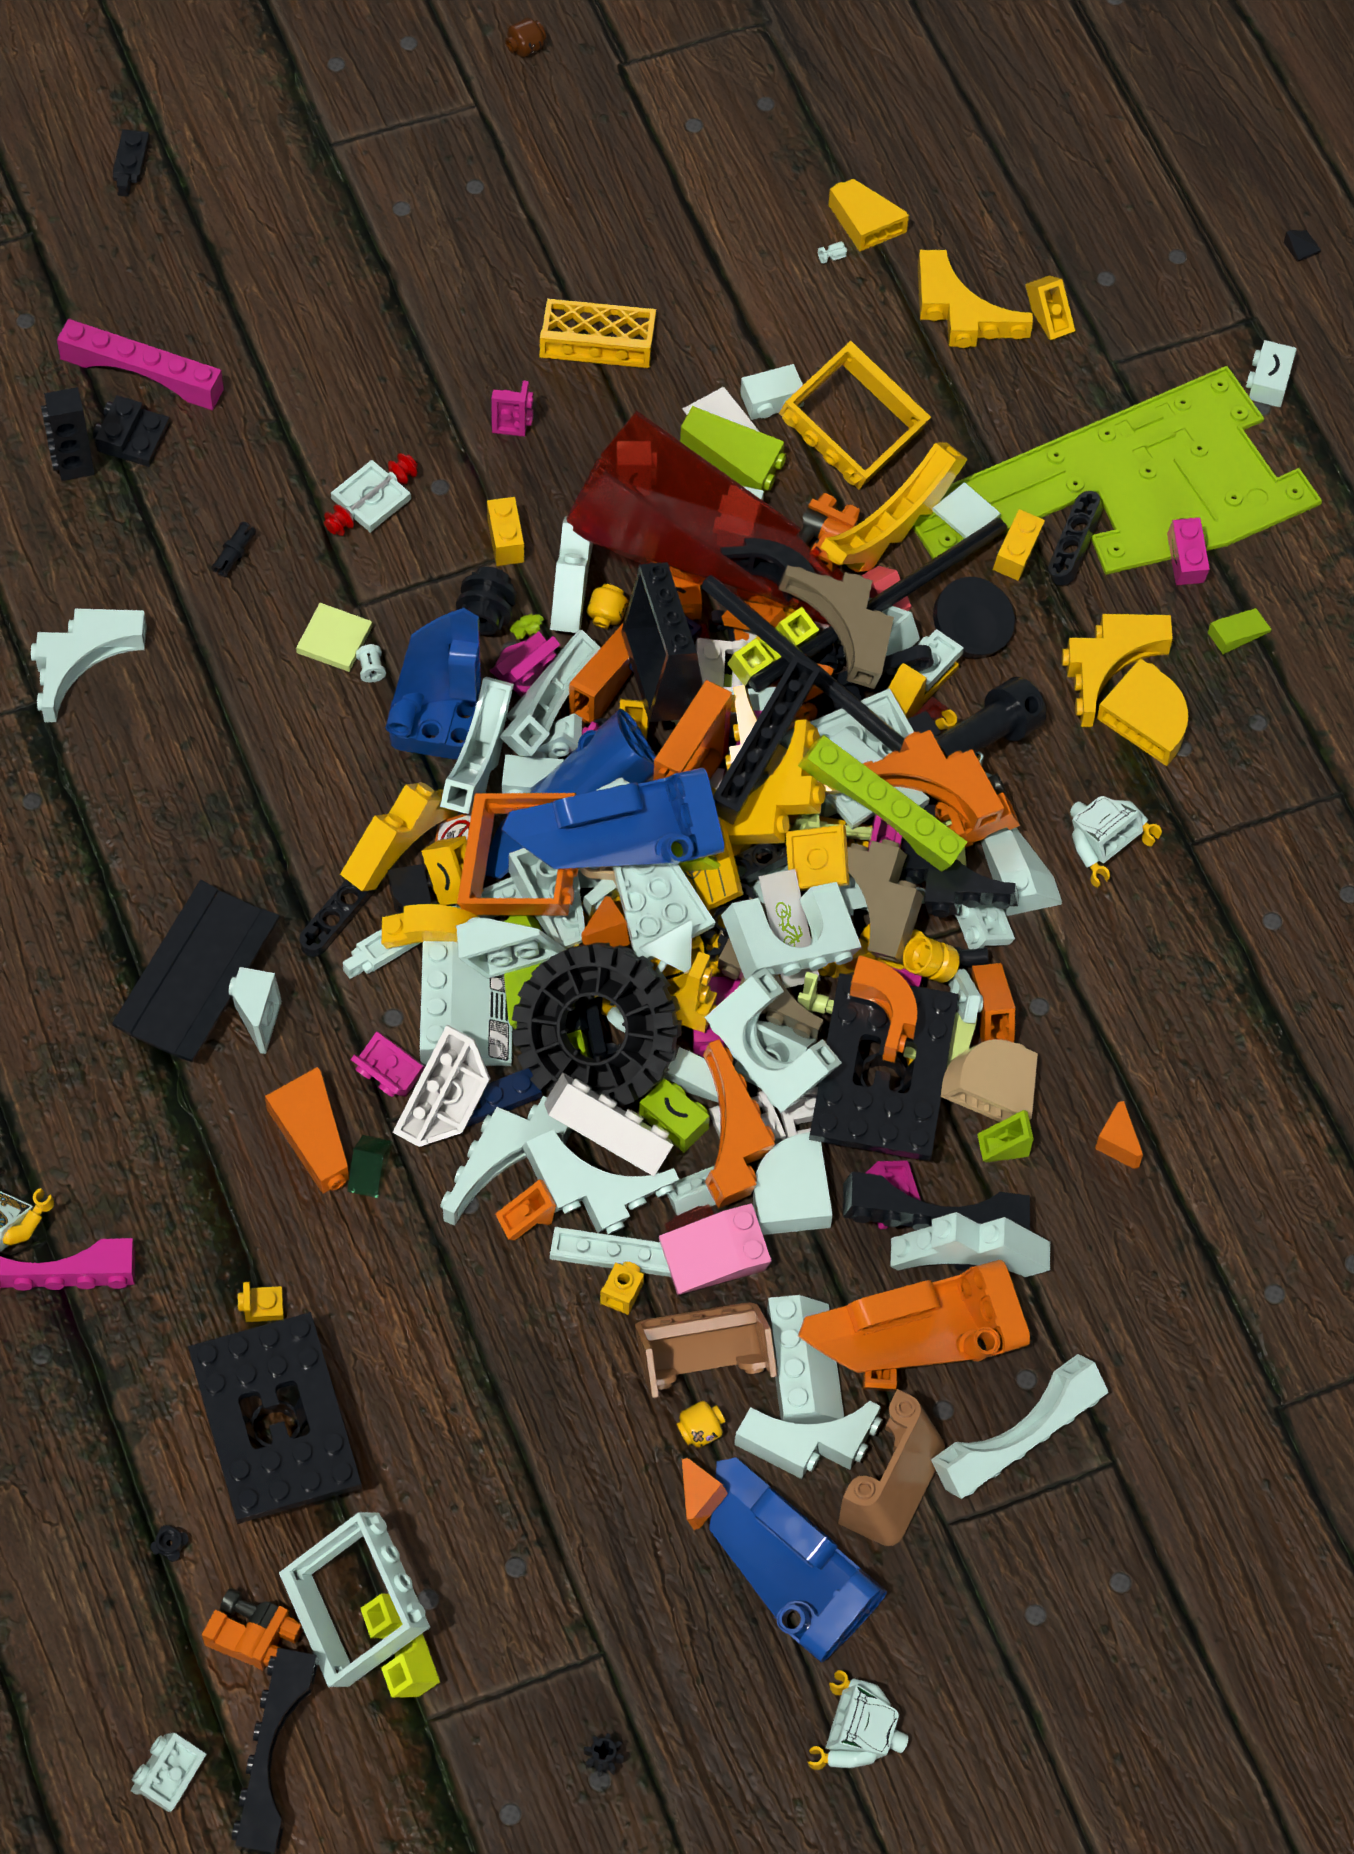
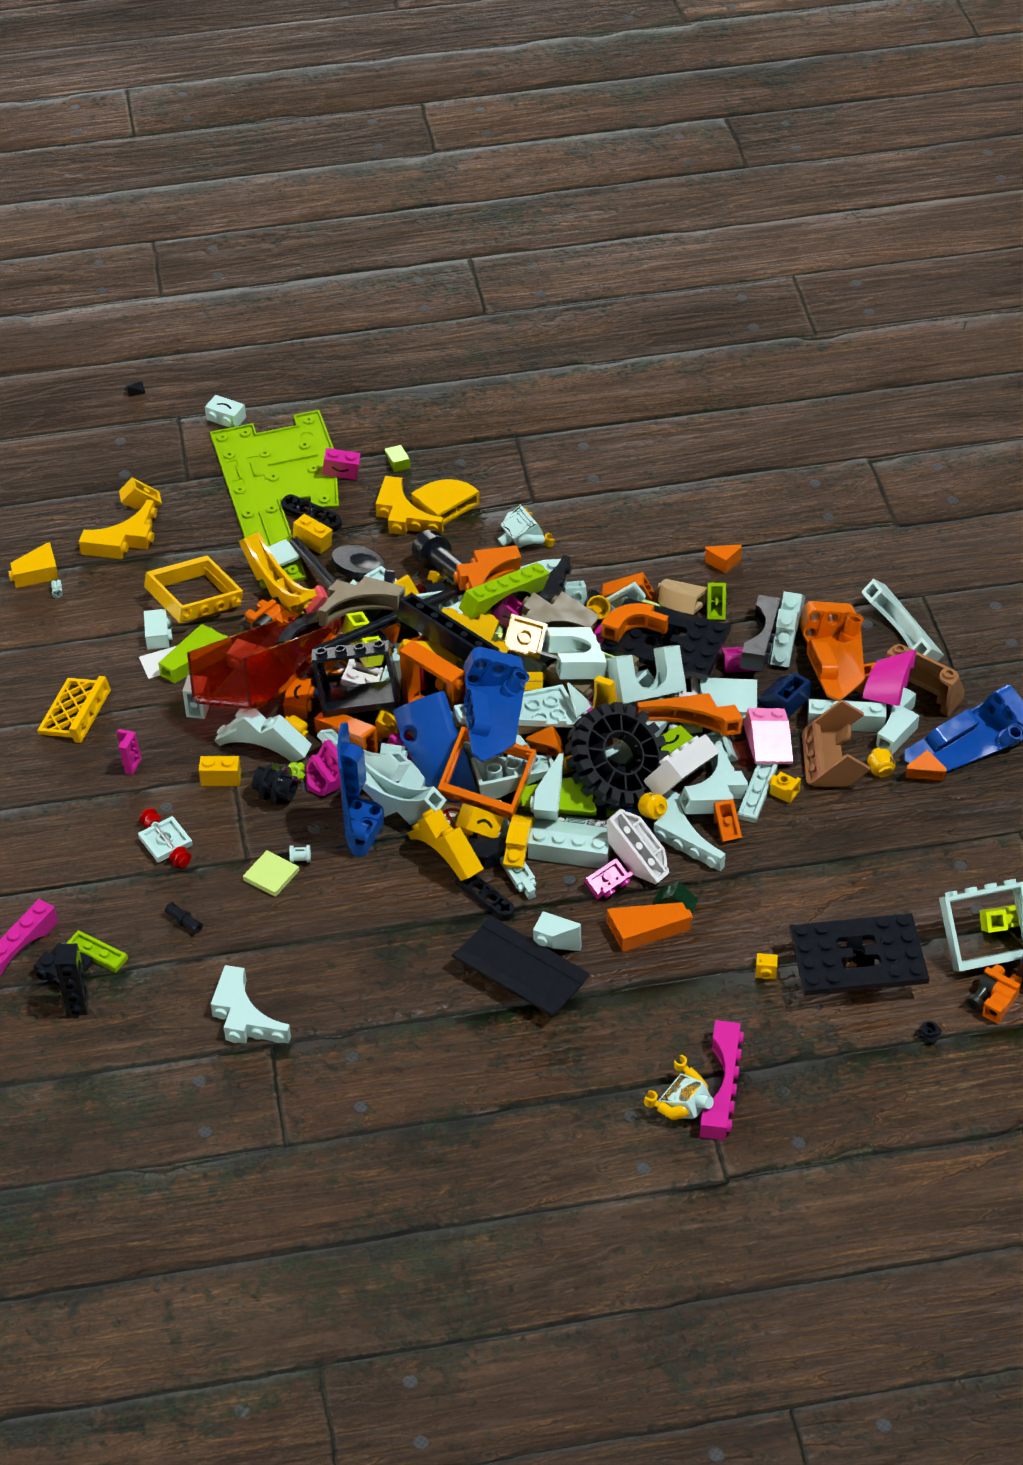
camera: 75 degrees left, 15 degrees down
(165, 465) = (99, 951): none -> lime tile
(521, 1095) = (652, 805): none -> yellow head
(817, 1264) = (786, 693): none -> dark blue slope
(849, 1403) = (889, 677): none -> dark pink slope

